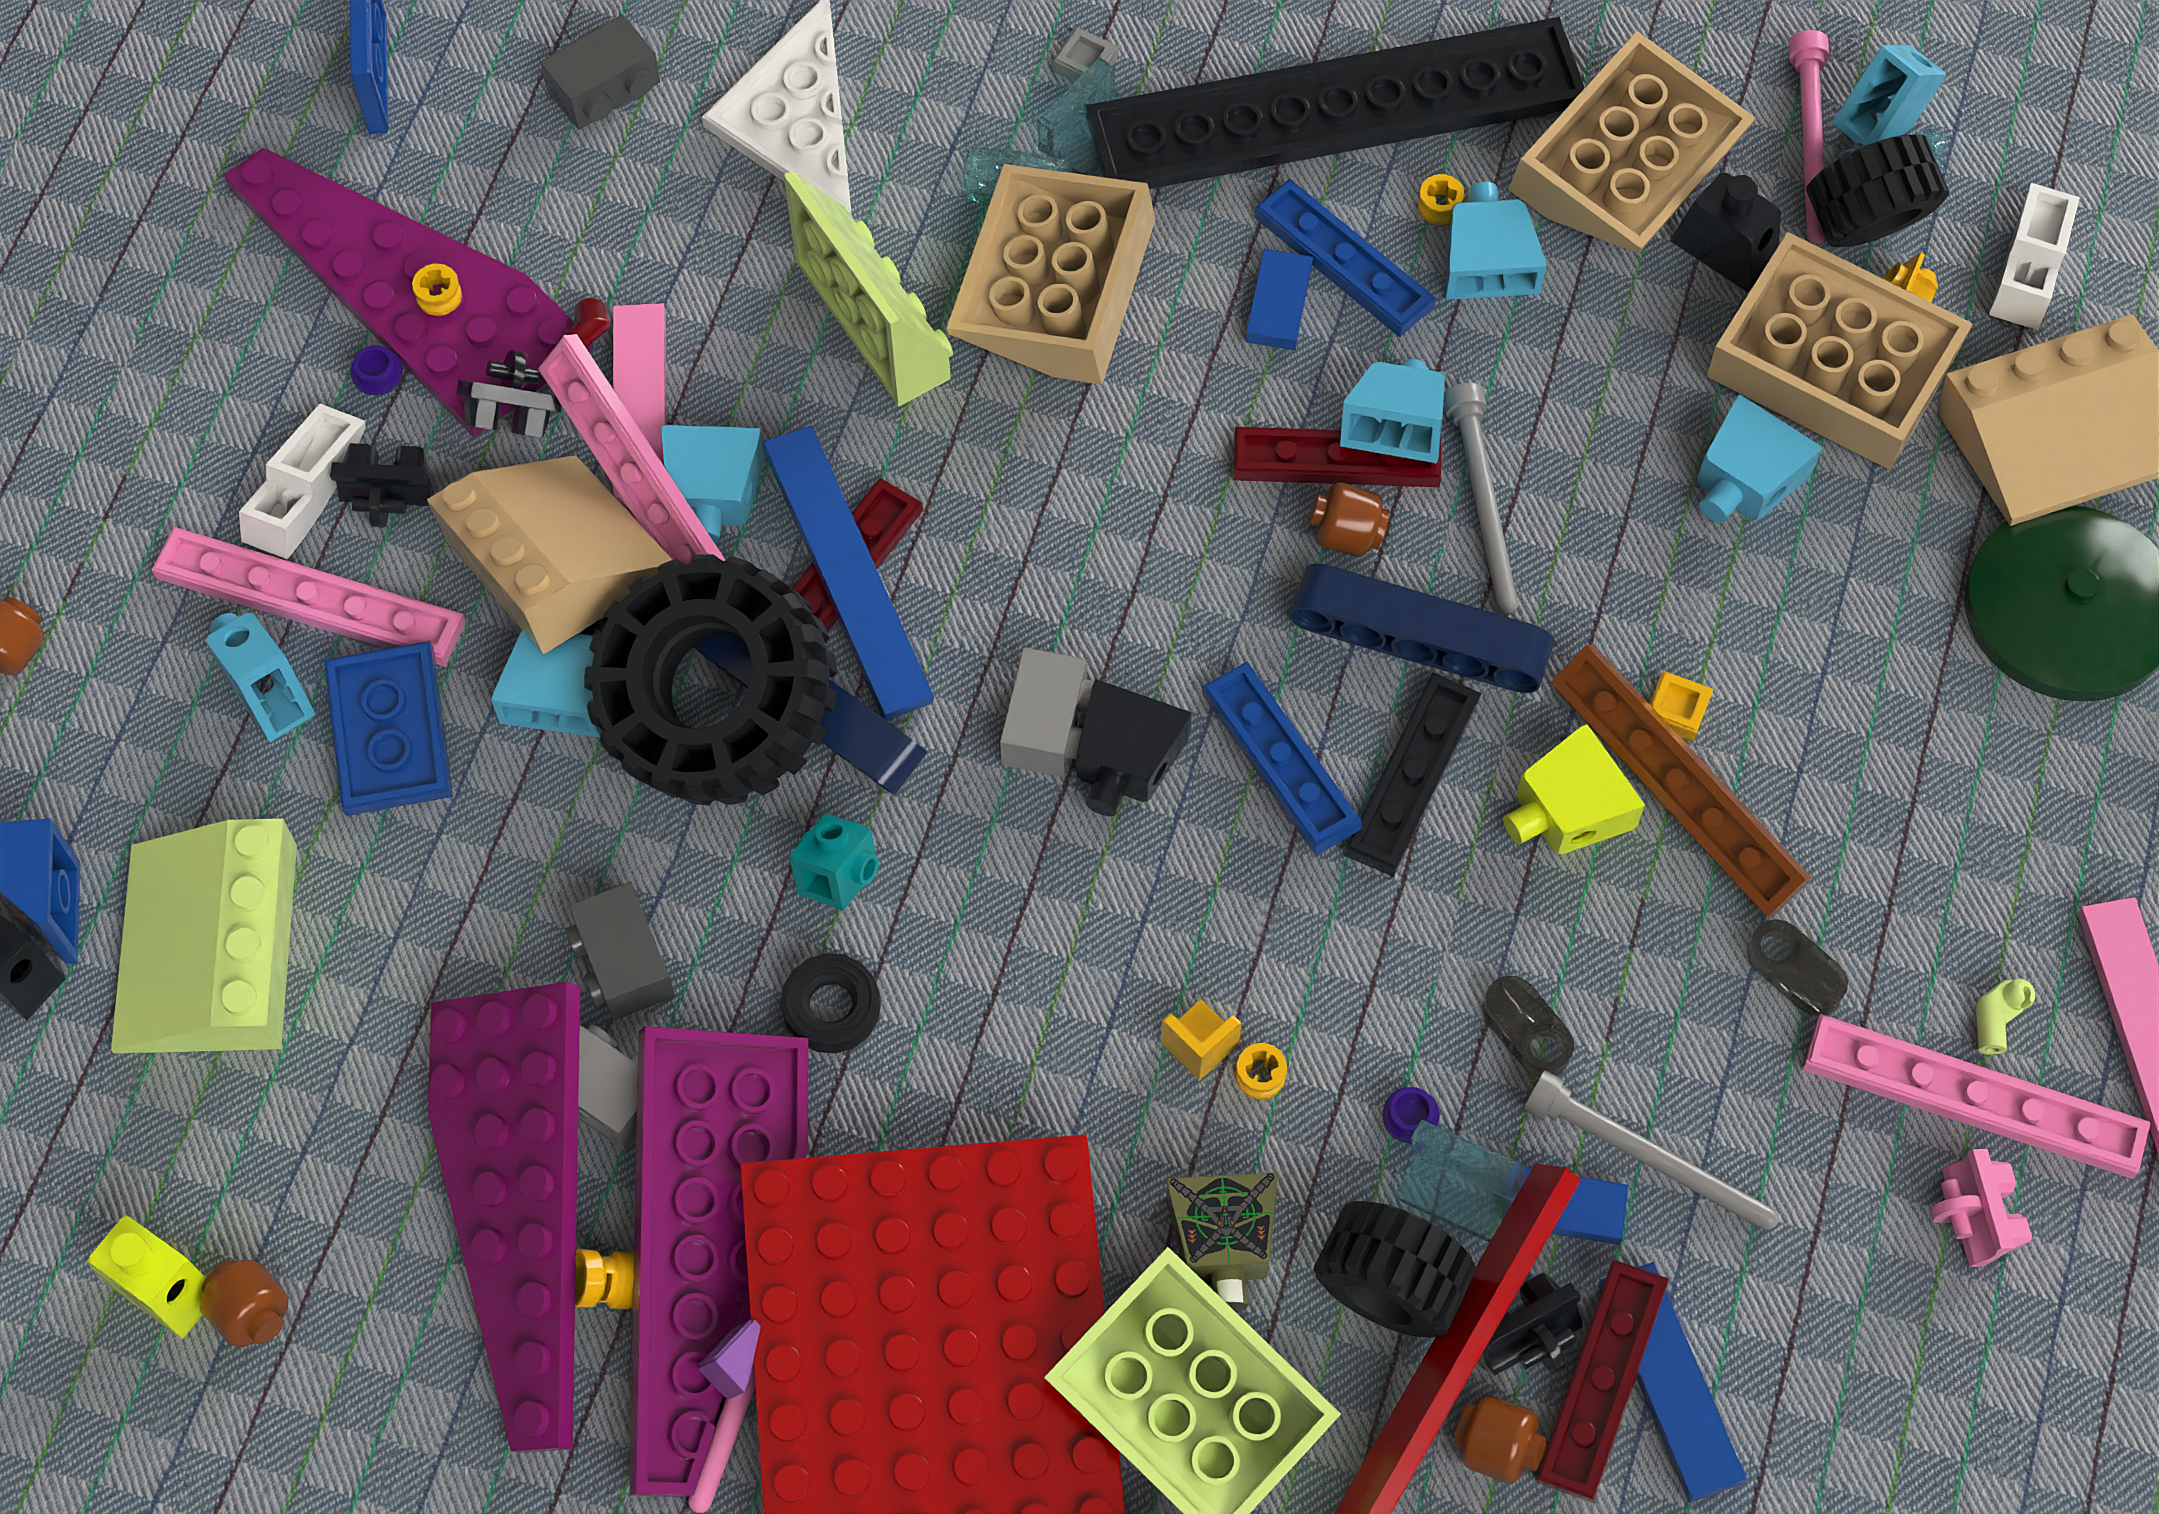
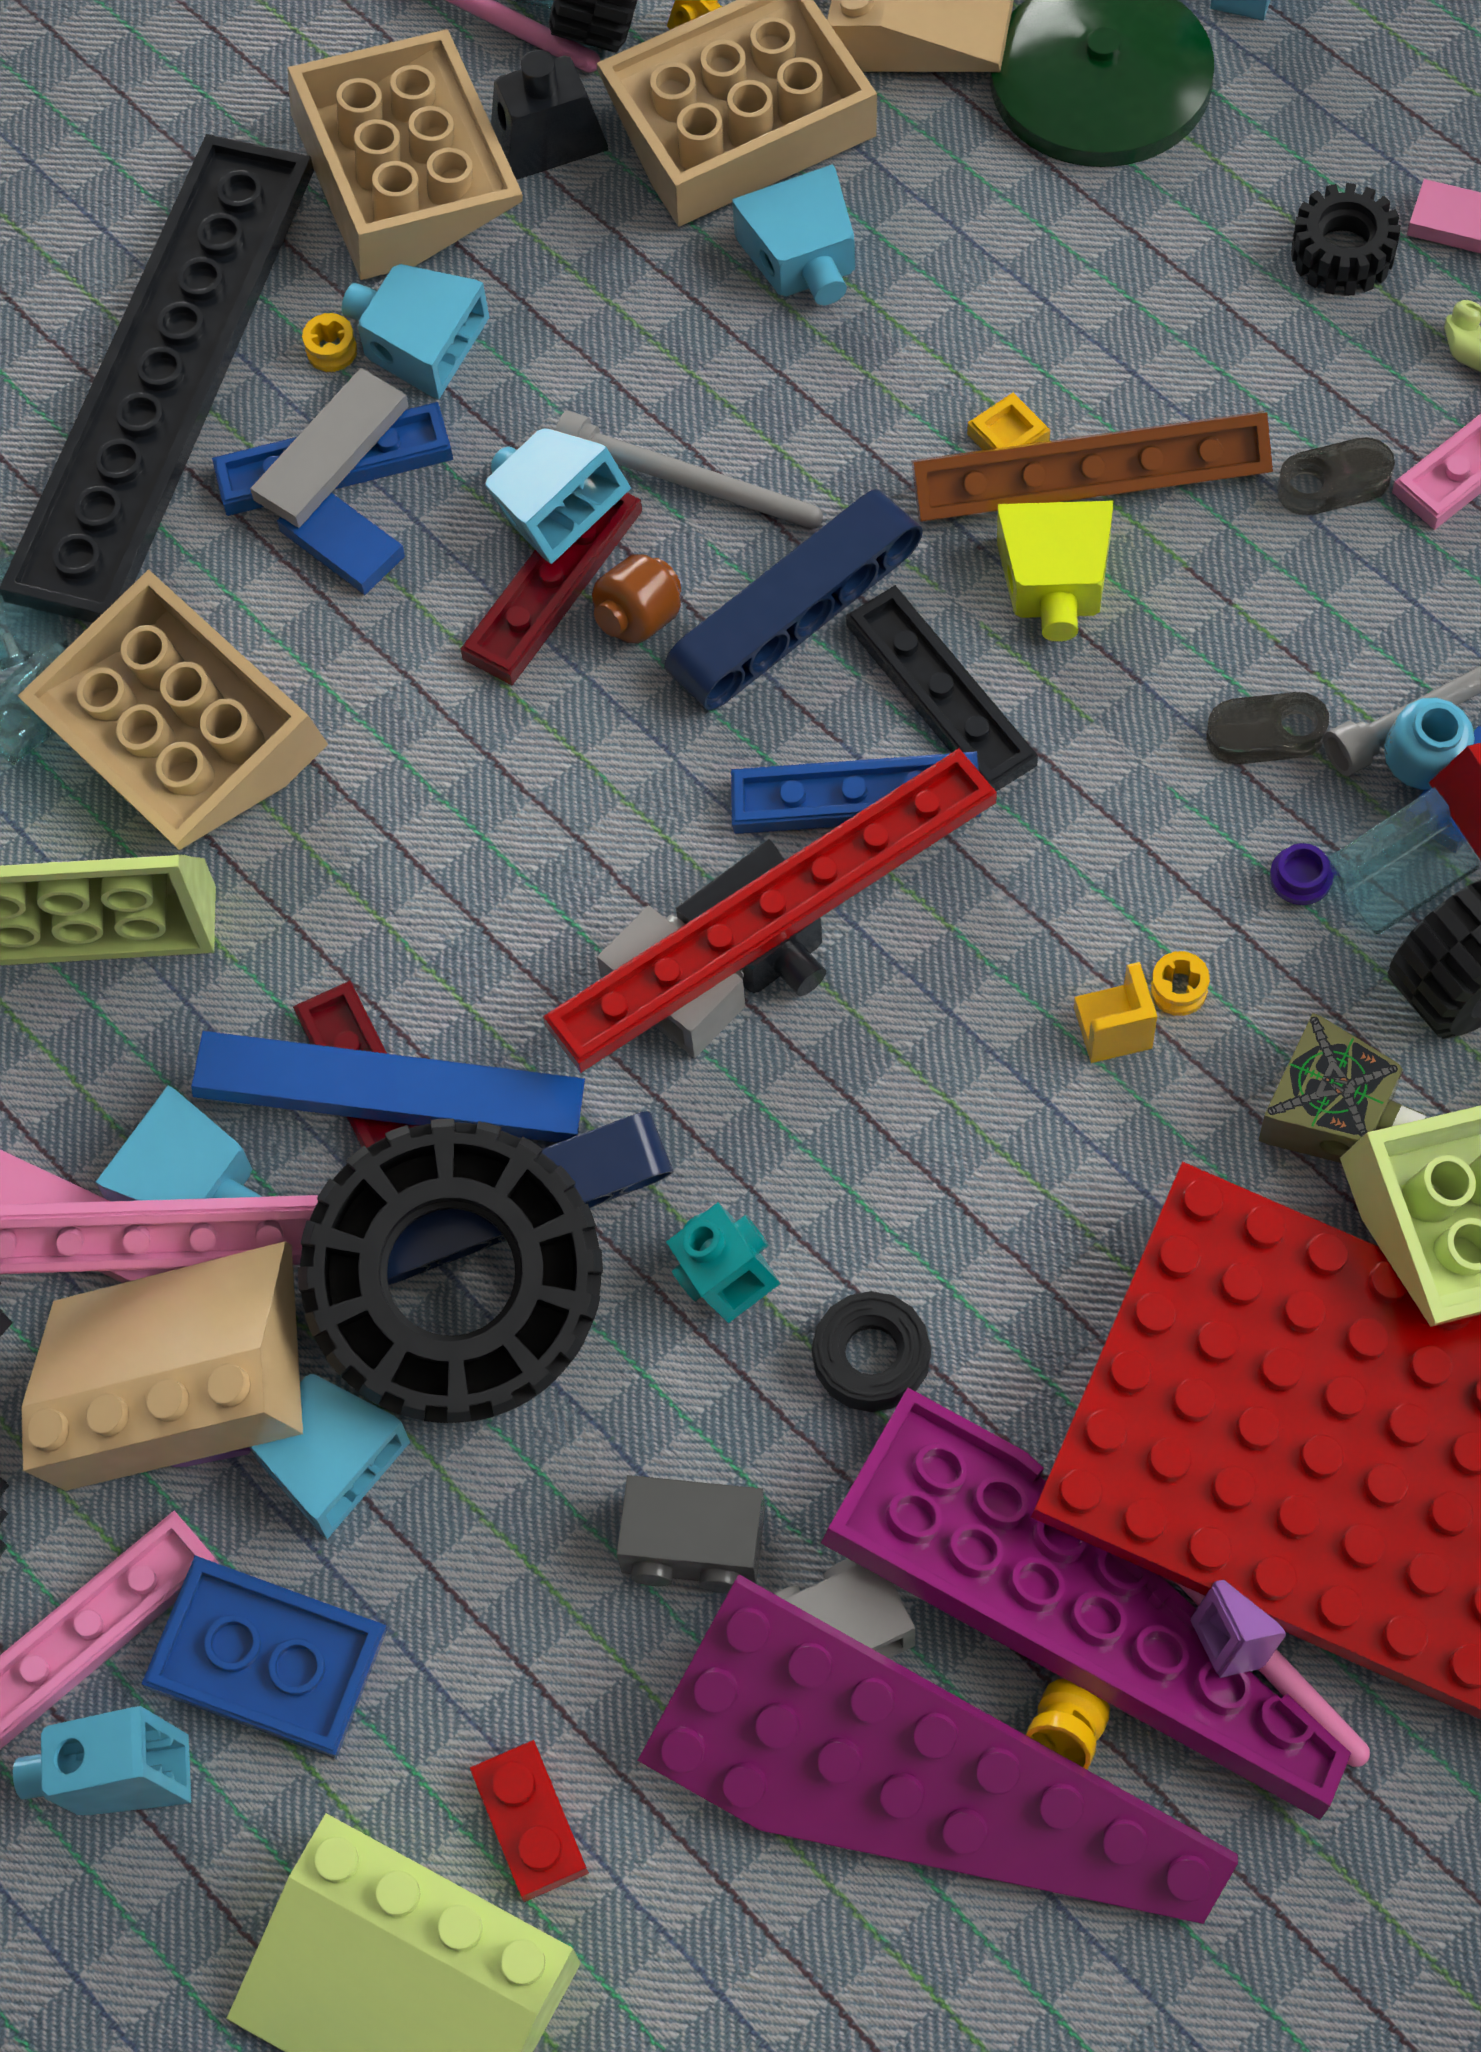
camera: 55 degrees left, 0 degrees up
(361, 960) = (528, 1821): none -> red plate
(1133, 744) = (769, 910): none -> red tile
(1343, 247) = (329, 447): none -> light grey tile
(1579, 1143) = (1426, 740): none -> medium azure head
(2047, 841) = (1345, 213): none -> black tyre

